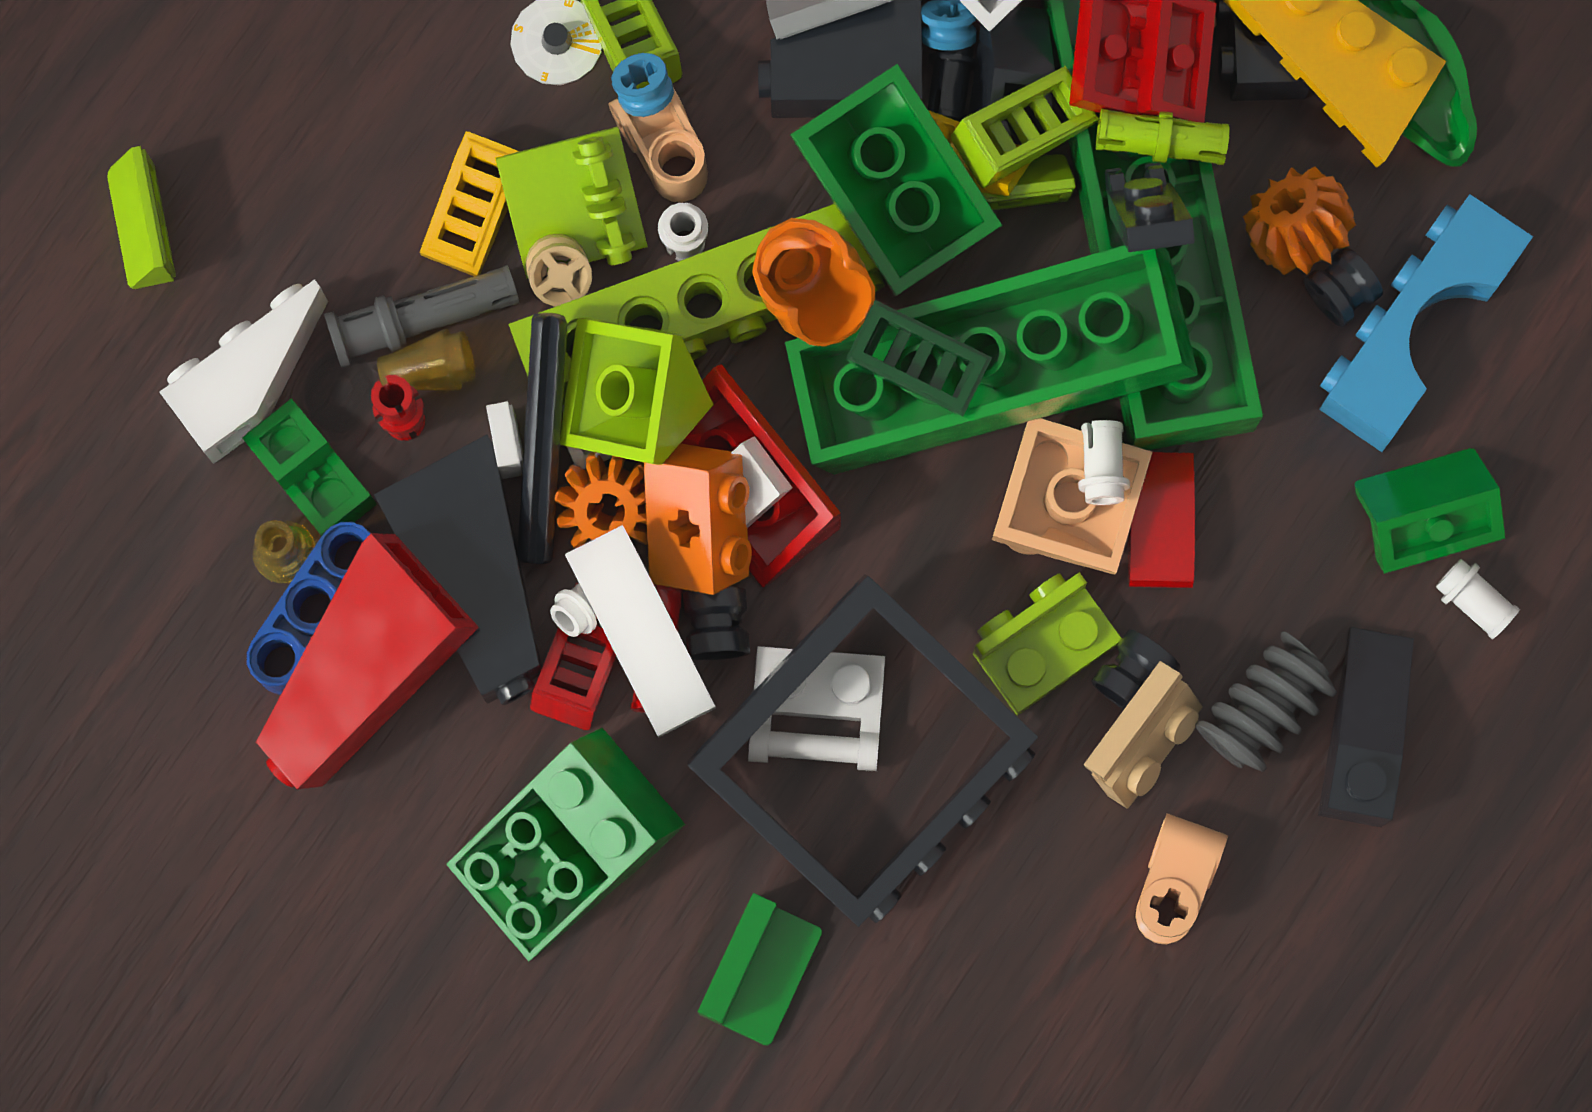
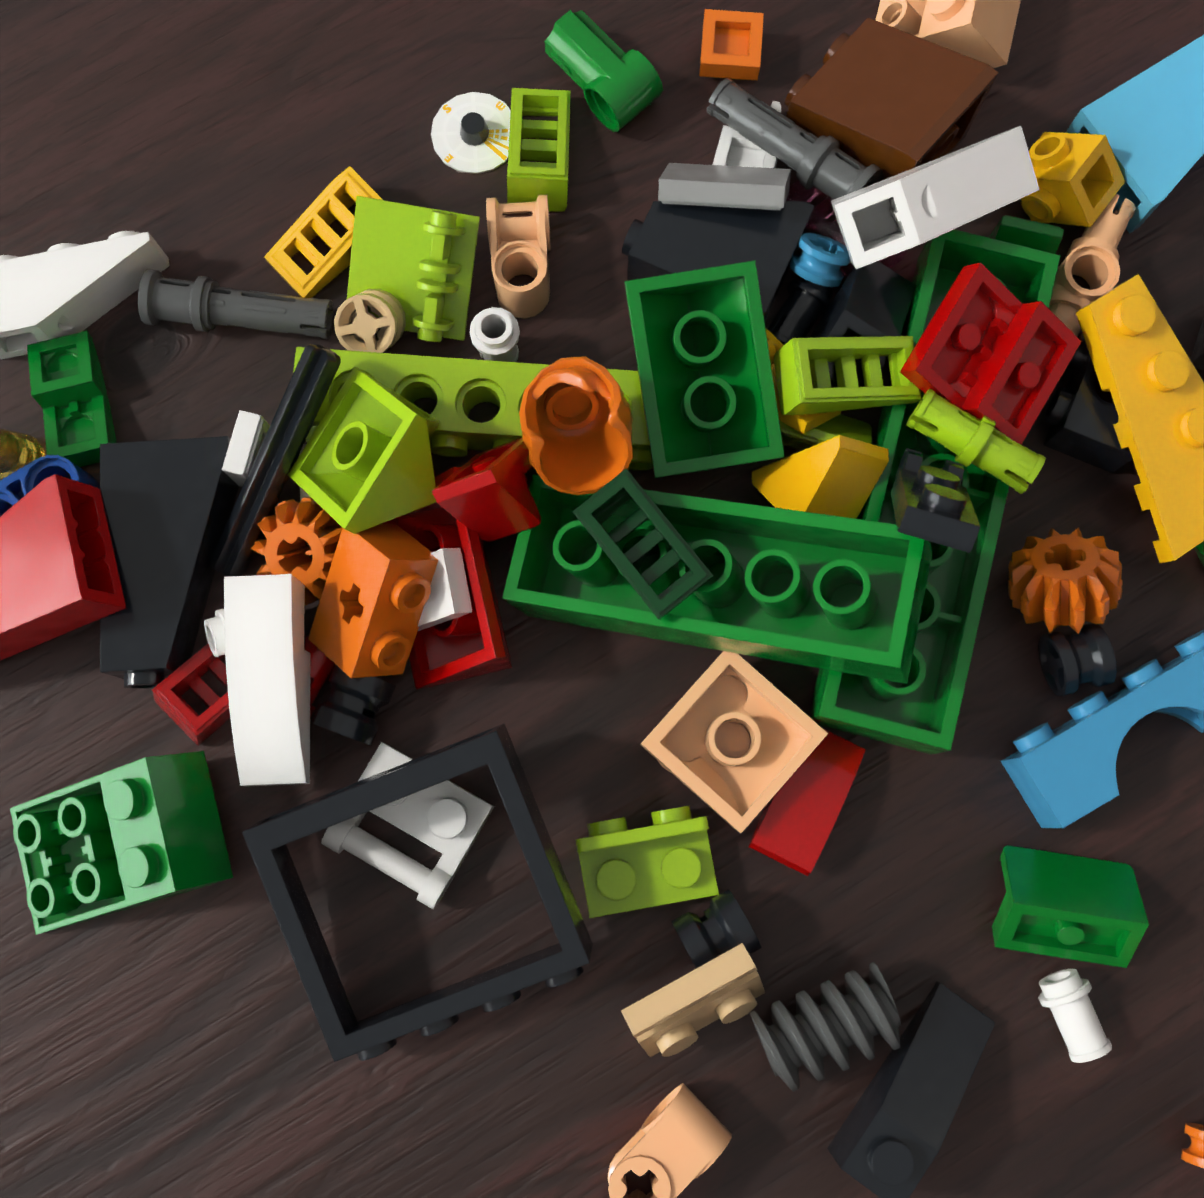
camera: 25 degrees right, 0 degrees up
(140, 220) = (49, 125): lime slope -> none
(400, 393) = (159, 375): red pin -> none
(432, 363) = (222, 355): clear yellow cone -> none
(639, 69) = (519, 189): dark azure bush -> none
(758, 371) = (492, 492): none -> red slope
(760, 971) = (233, 1048): green panel -> none
(1045, 230) = (825, 478): none -> yellow slope
(1103, 463) = (776, 724): white pin -> none

